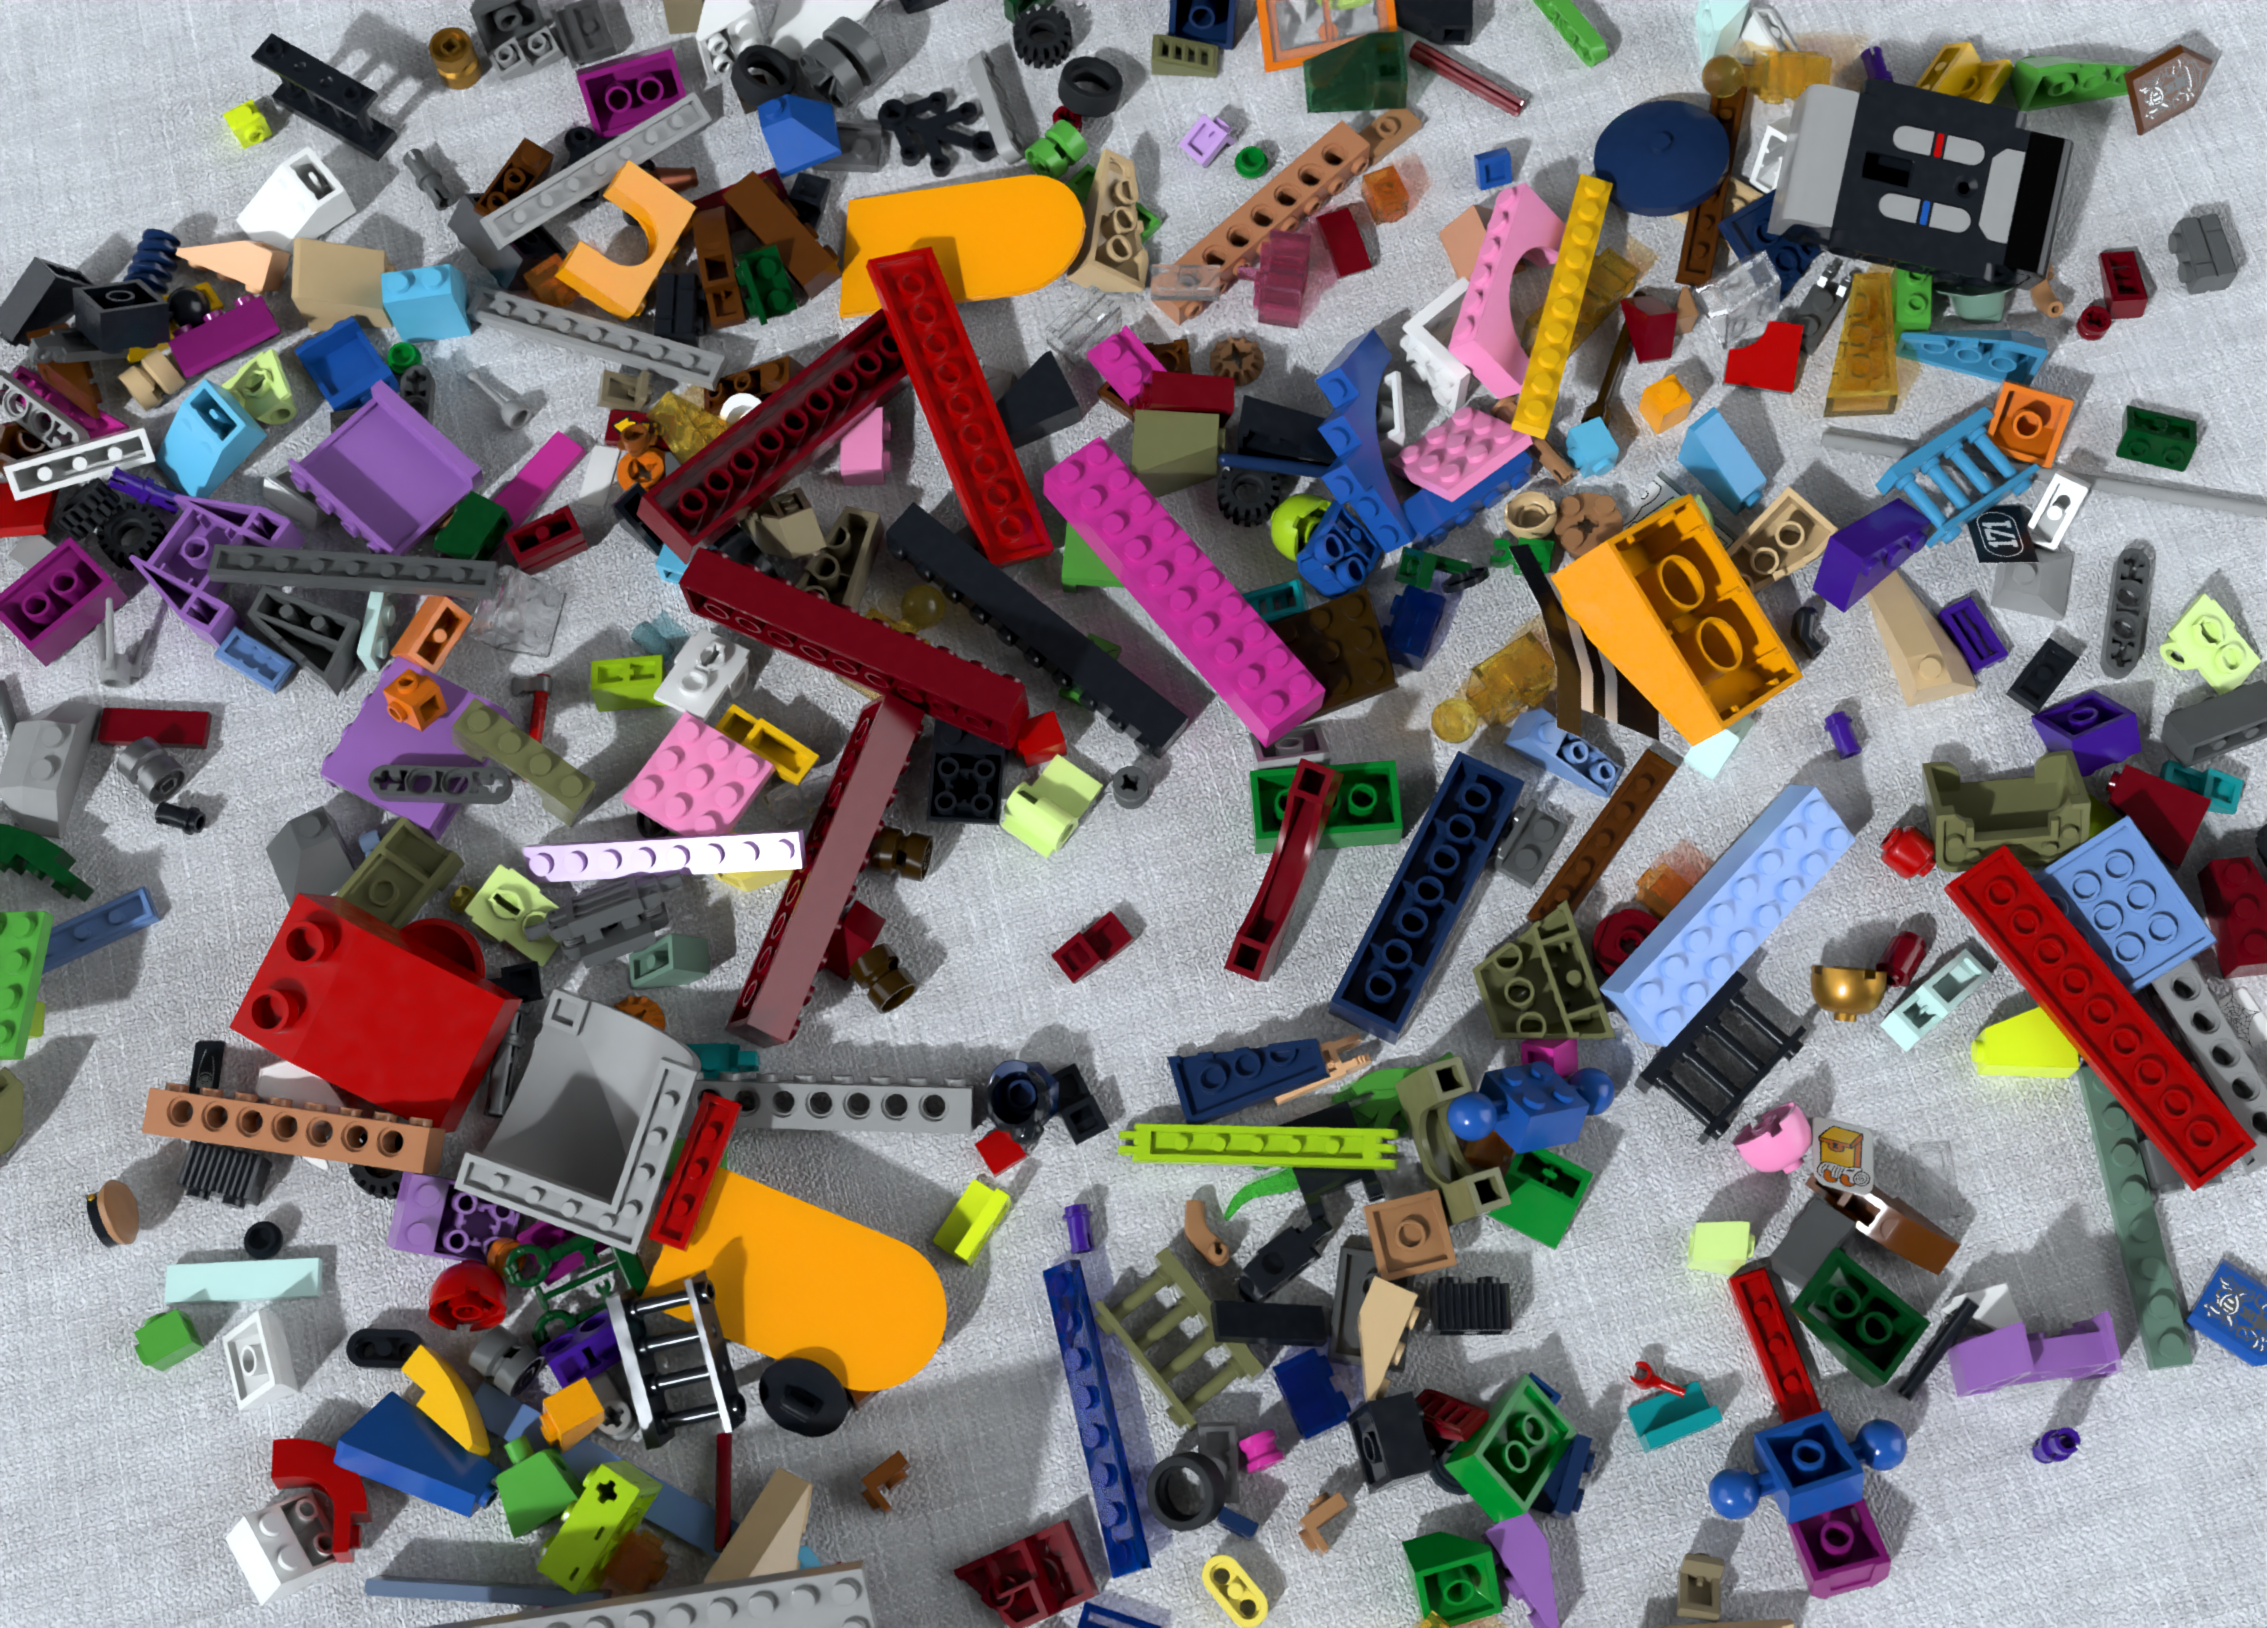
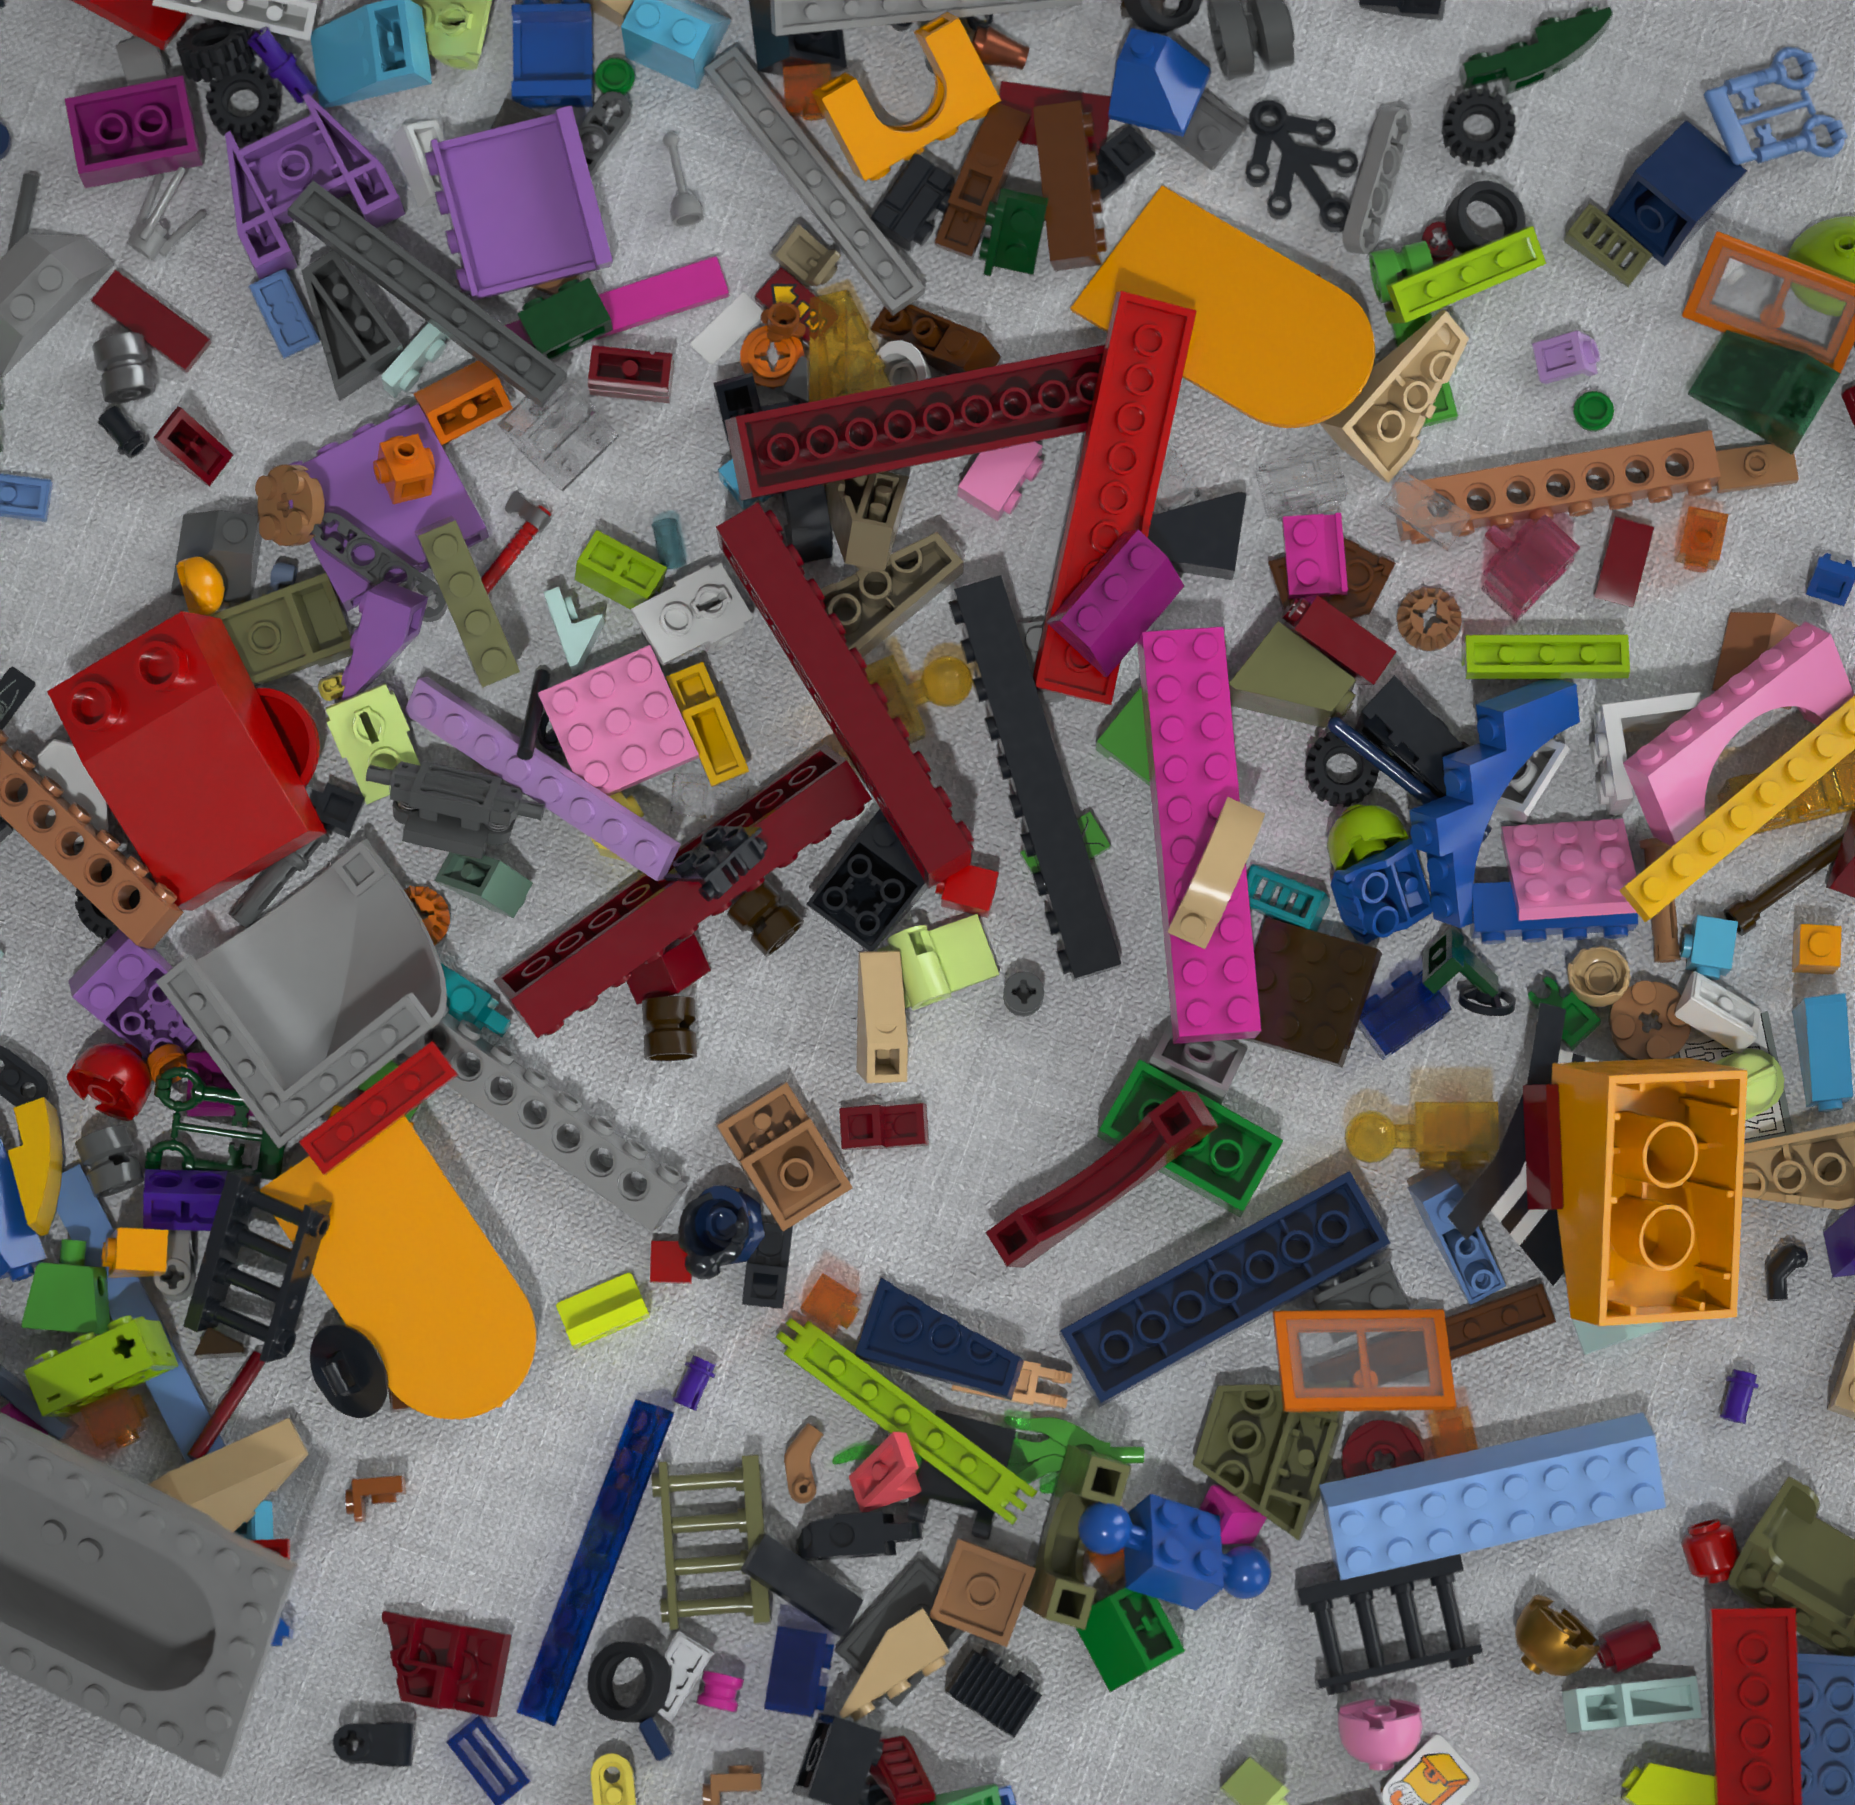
camera: 30 degrees right, 10 degrees up
(239, 793) = (192, 446): none -> dark red slope
(307, 878) = (201, 585): none -> light orange hair
(326, 784) = (279, 522): none -> medium nougat plate
(474, 824) = (387, 626): none -> medium lavender slope
(622, 747) = (575, 638): none -> light aqua slope
(629, 818) = (532, 716): none -> black bar
(686, 1447) = (218, 1345): none -> dark brown slope
(840, 819) = (720, 859): none -> black hinge
(1010, 469) = (1117, 601): none -> magenta slope
(1033, 1016) = (783, 1156): none -> medium nougat slope
(1039, 867) = (881, 1018): none -> tan slope
(1101, 122) = (1464, 275): none -> lime fence
(1144, 1100) = (831, 1305): none -> clear orange brick
(1220, 595) = (1217, 873): none -> tan arch
(1274, 1195) = (886, 1474): none -> coral slope
(1336, 328) = (1546, 656): none -> lime fence
(1565, 878) = (1364, 1360): none -> clear door
(1585, 640) = (1543, 1147): none -> dark red tile
(1631, 488) = (1718, 1013): none -> white slope

